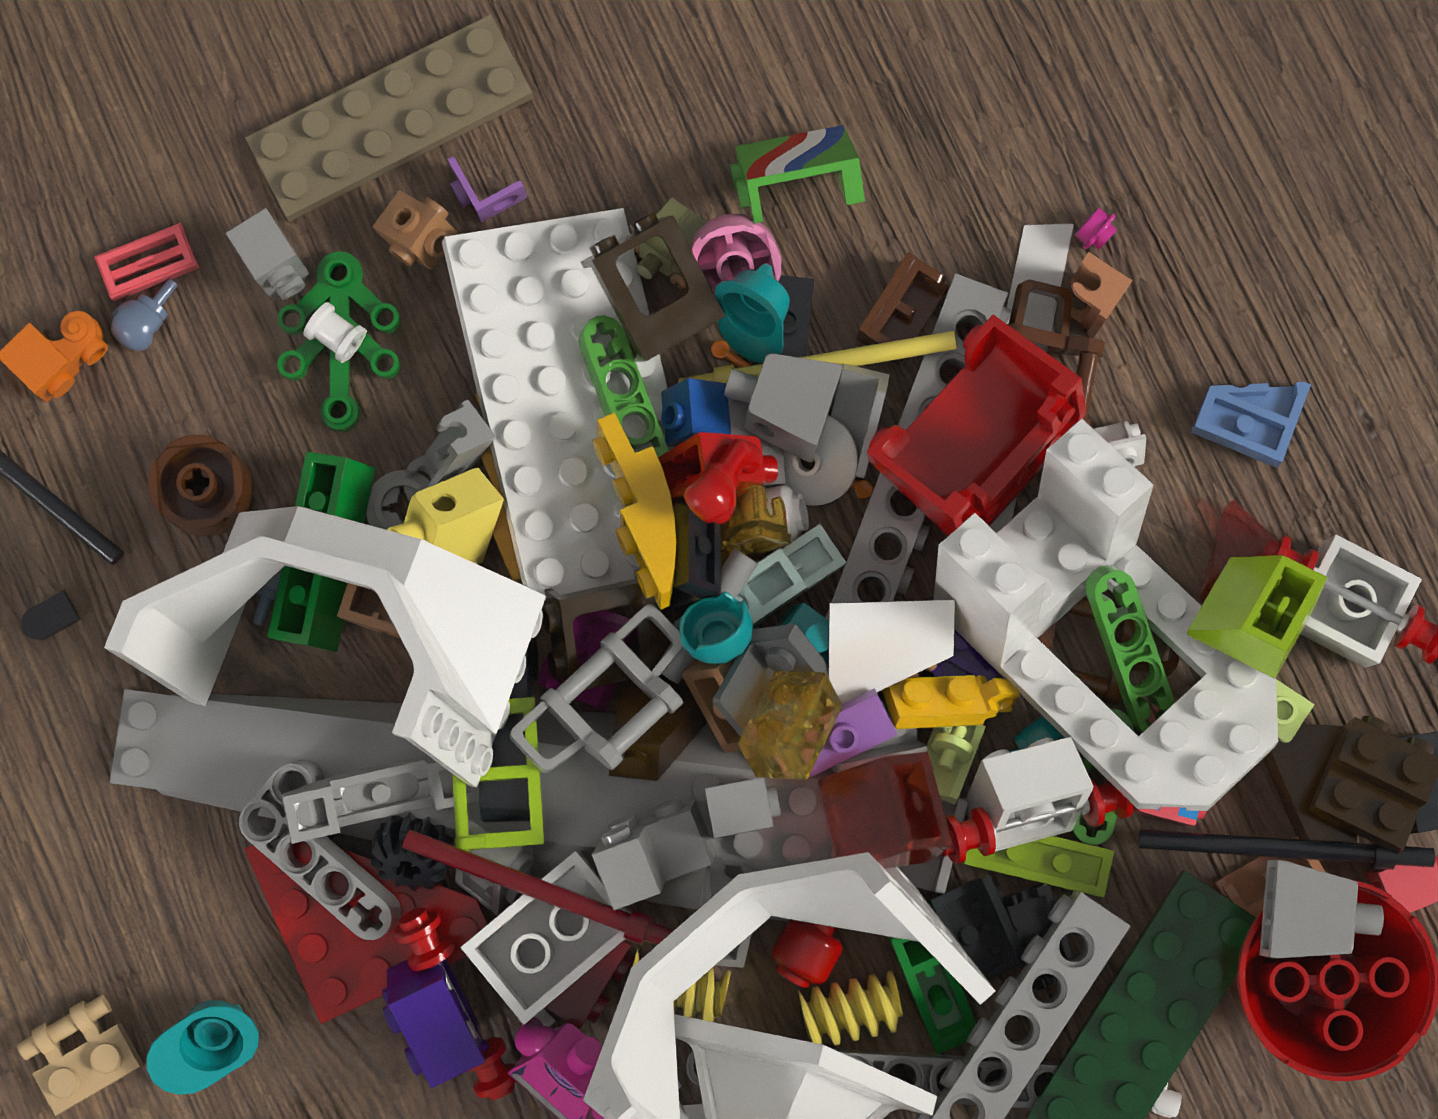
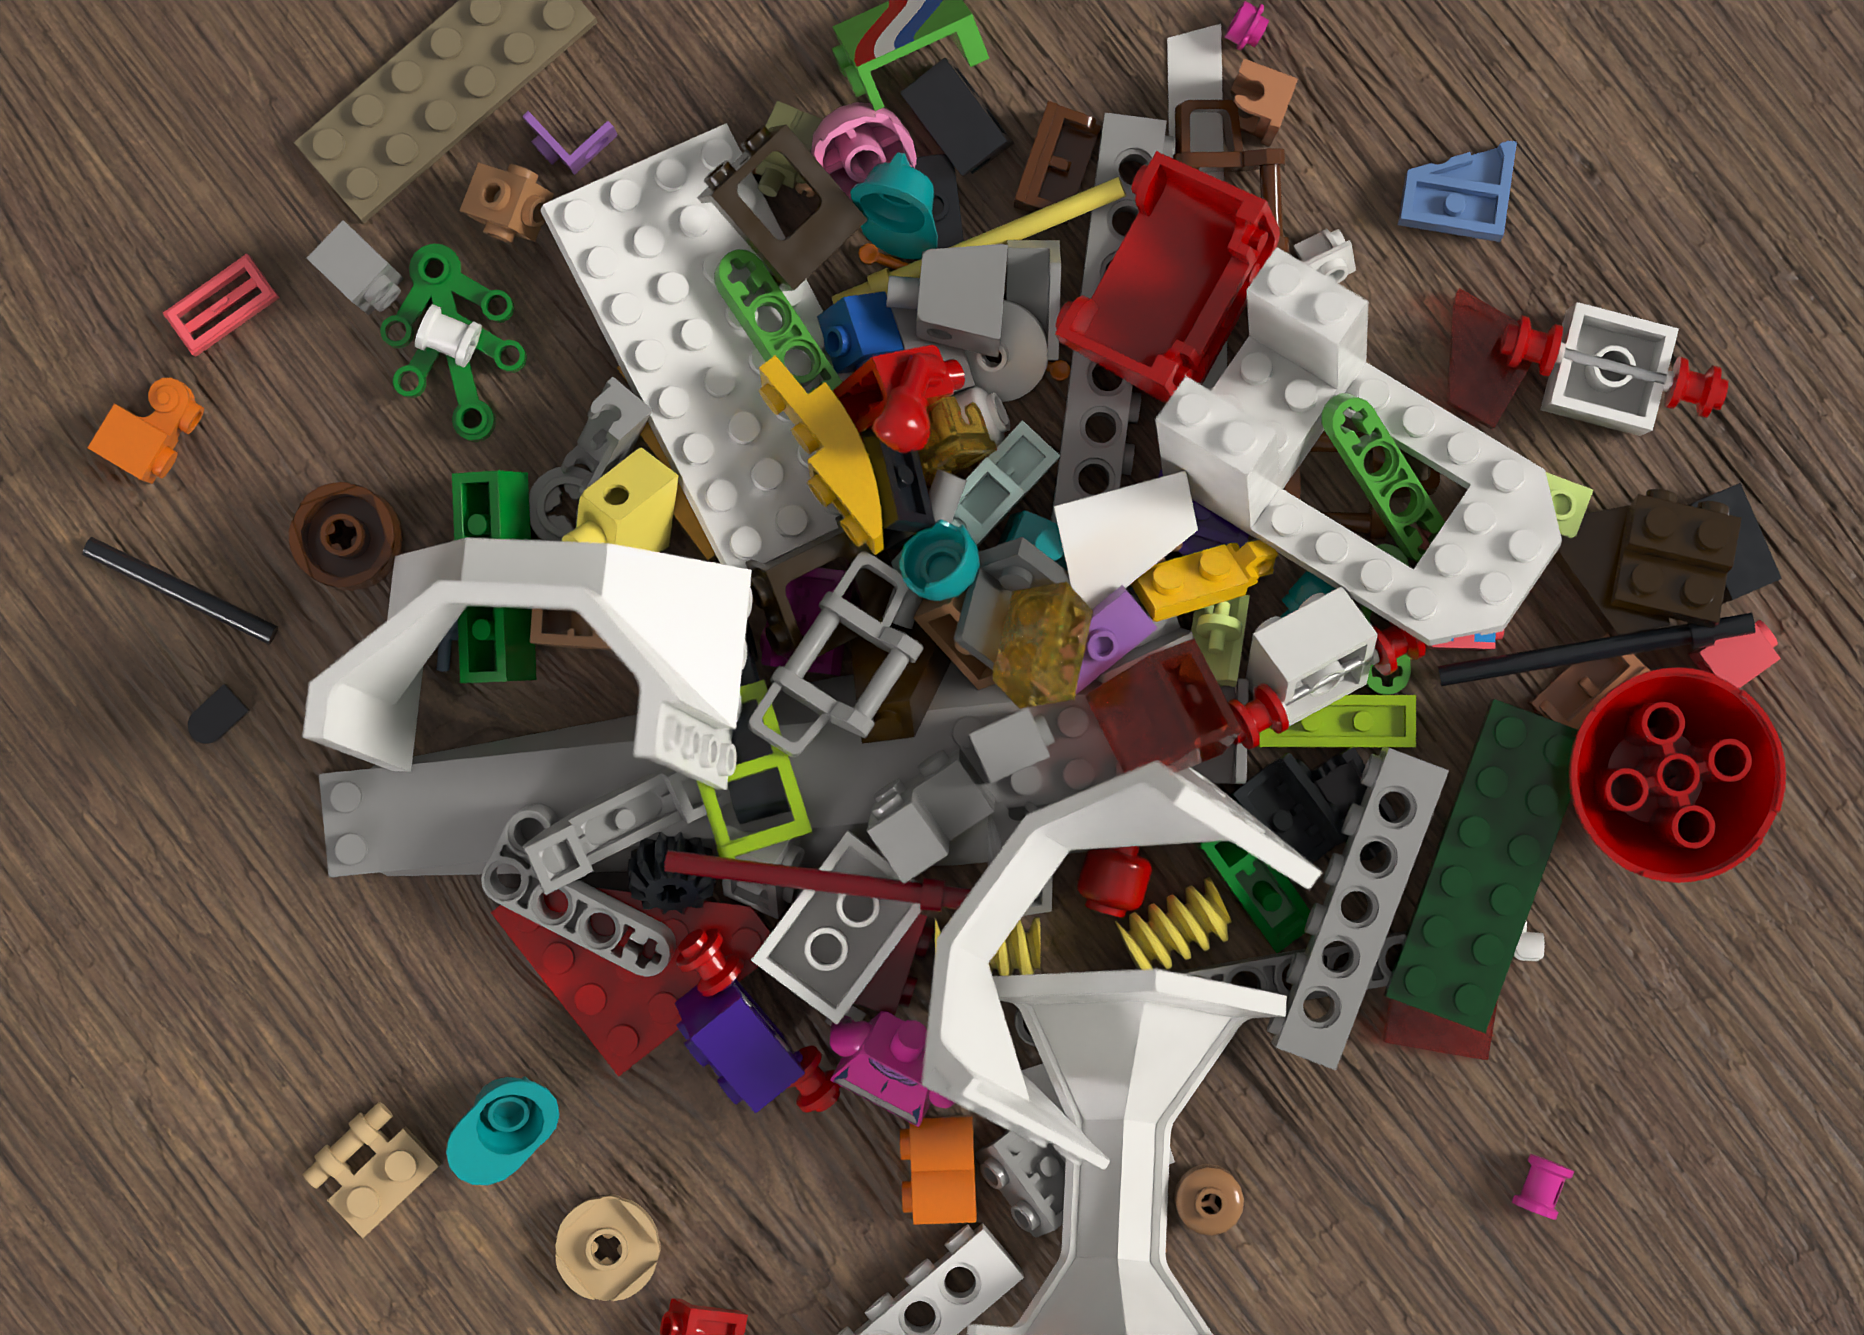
camera: 10 degrees left, 5 degrees up
(140, 318) = (229, 371): sand blue piece -> none
(824, 249) = (957, 117): none -> black hinge
(1258, 610) = (1510, 404): lime slope -> none
(1312, 913) = (1634, 712): light grey torso -> none

